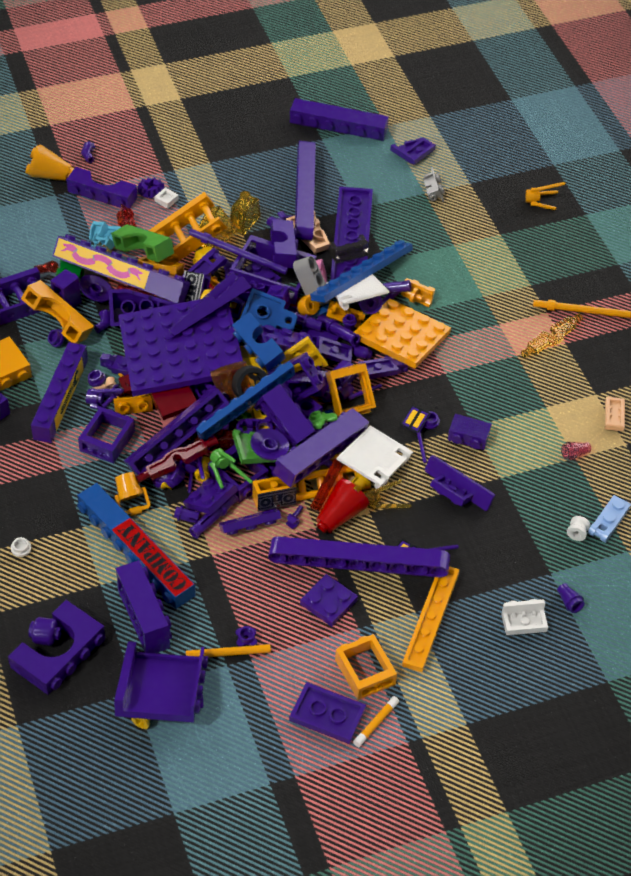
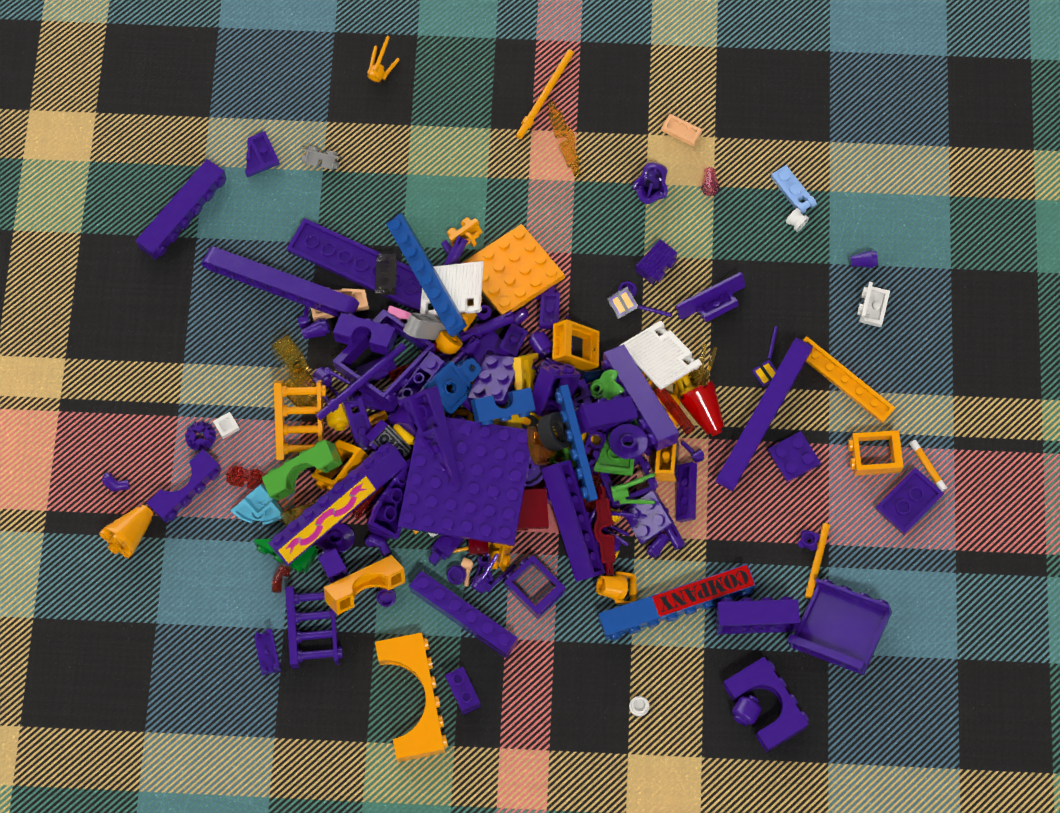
camera: 65 degrees left, 20 degrees up
(235, 239) = (325, 375): none -> dark purple plant
(544, 402) = (652, 184): none -> dark purple head

